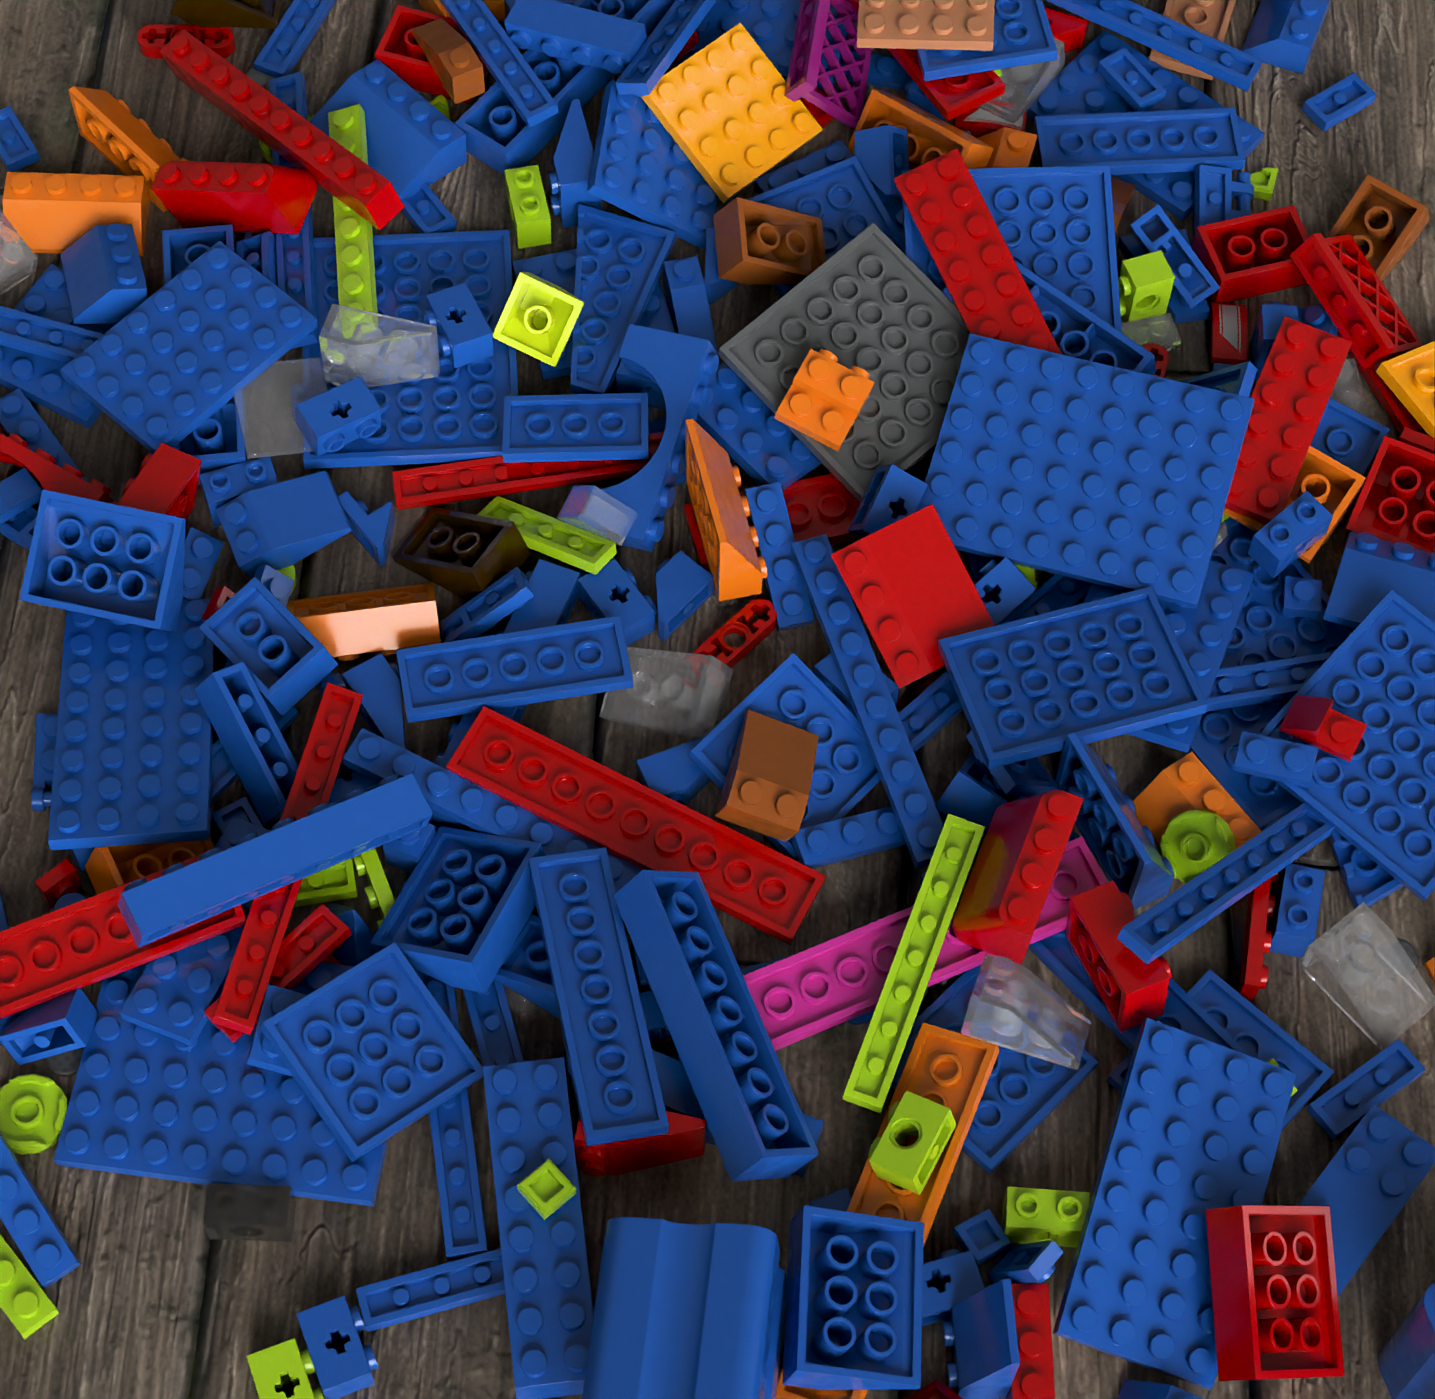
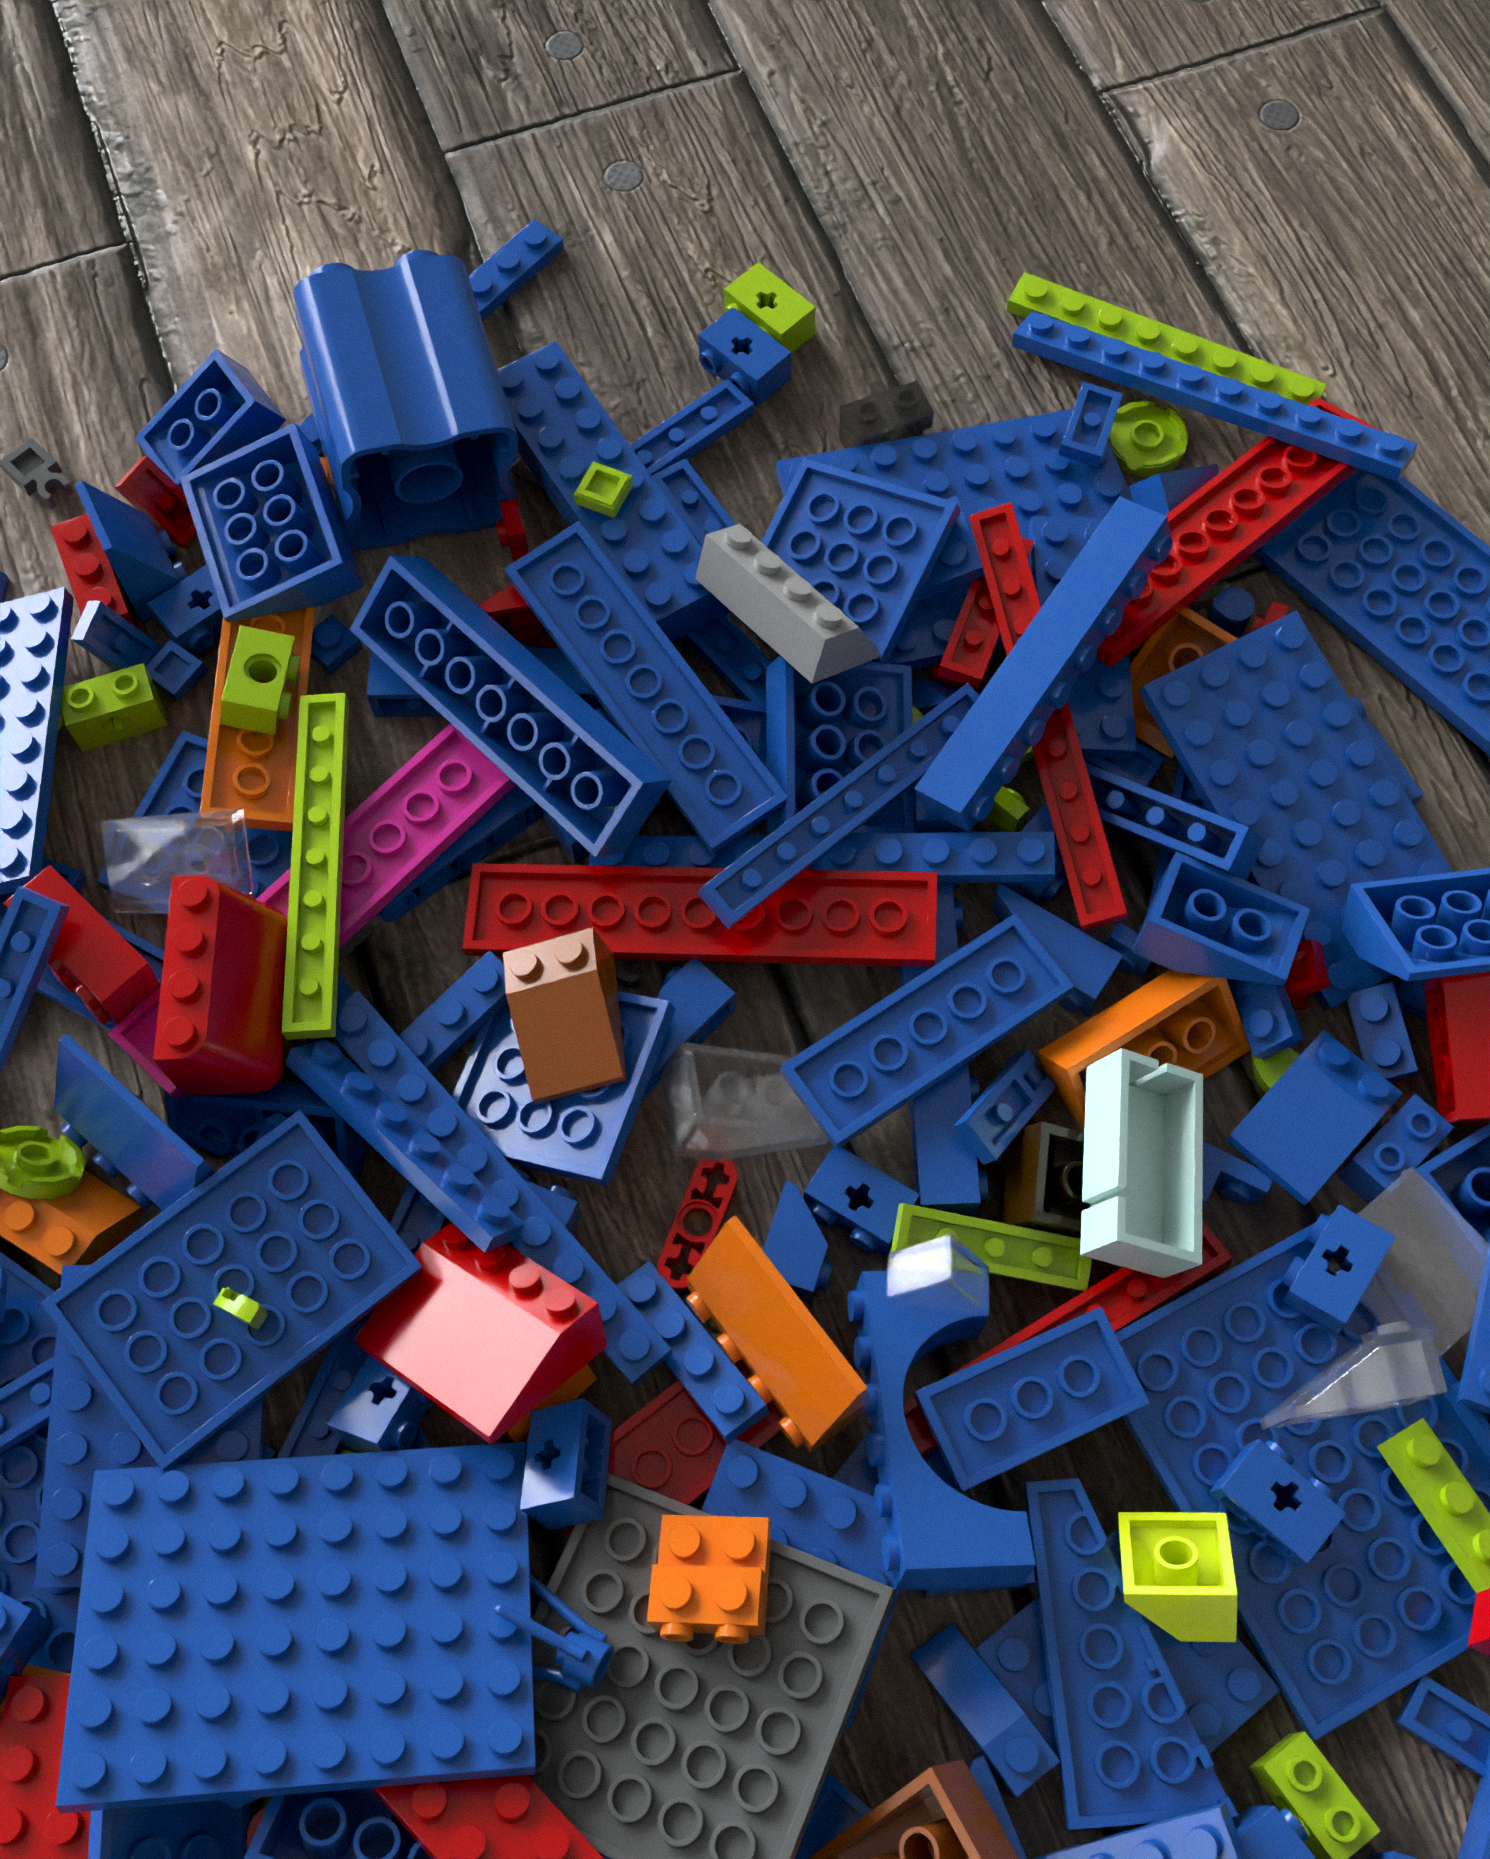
camera: 160 degrees right, 5 degrees up
(79, 1116) = (1090, 424): none -> blue plate
(421, 523) = (1143, 1164): none -> light aqua piece
(450, 1000) = (781, 605): none -> light grey slope
(480, 838) = (834, 813): none -> blue plate
(921, 725) = (405, 1145): none -> blue plate
(922, 392) = (582, 1656): none -> blue plant
(1071, 644) = (241, 1307): none -> lime tile

